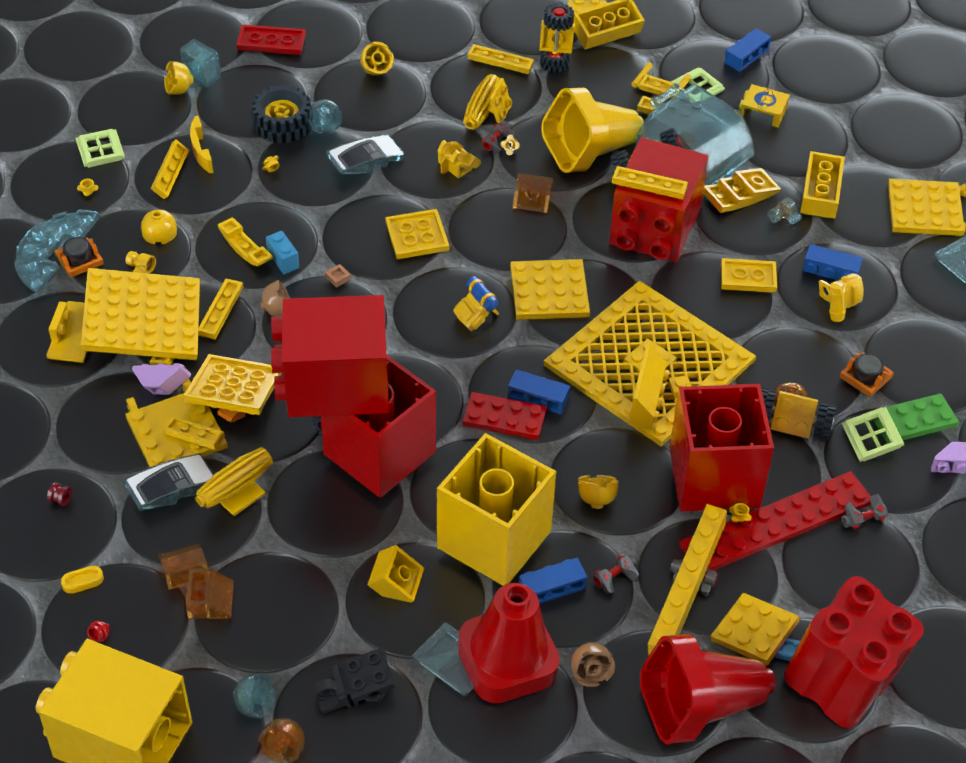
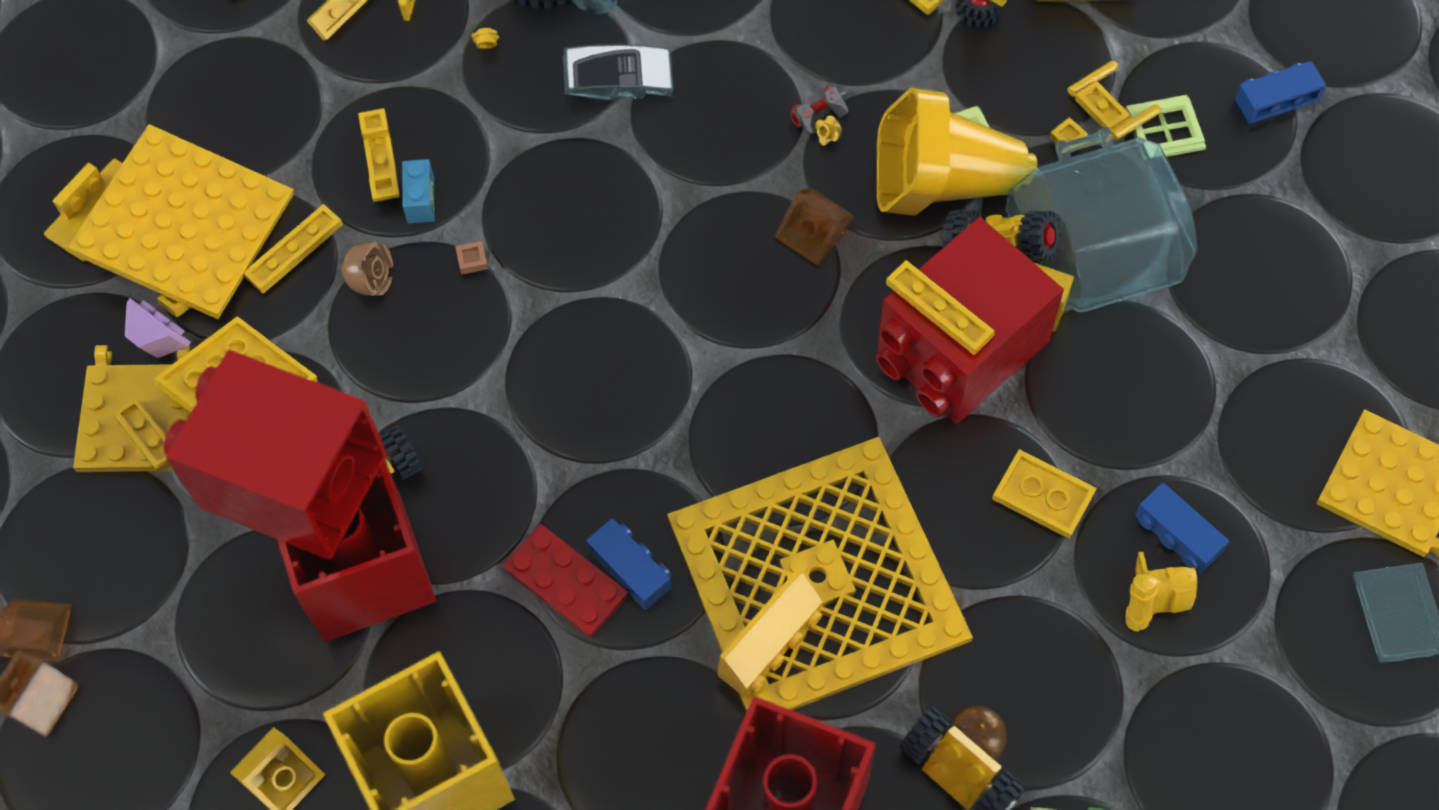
camera: 30 degrees right, 15 degrees up
(43, 239) = (128, 55): clear light blue plate -> none
(78, 255) = (162, 93): piece -> none
(143, 263) = (236, 136): yellow piece -> none
(158, 227) = (287, 85): yellow cylinder -> none
(168, 481) = (82, 496): slope -> none
(235, 483) = (149, 542): yellow plate -> none
(417, 234) = (614, 231): yellow plate -> none
(456, 159) = (737, 135): yellow piece -> none
(476, 305) = (619, 388): yellow piece -> none
(488, 97) = (837, 43): yellow plate -> none
(549, 289) = (746, 397): yellow plate -> none
(597, 490) = (611, 763): yellow cylinder -> none
(676, 382) = (829, 643): yellow plate -> none
(741, 190) = (1122, 339): yellow slope -> none
(765, 101) = (1248, 200): yellow panel -> none
(785, 209) = (1167, 401): clear light blue piece -> none
(822, 185) = (1247, 382): yellow brick -> none
(866, 373) = (1118, 741): piece -> none

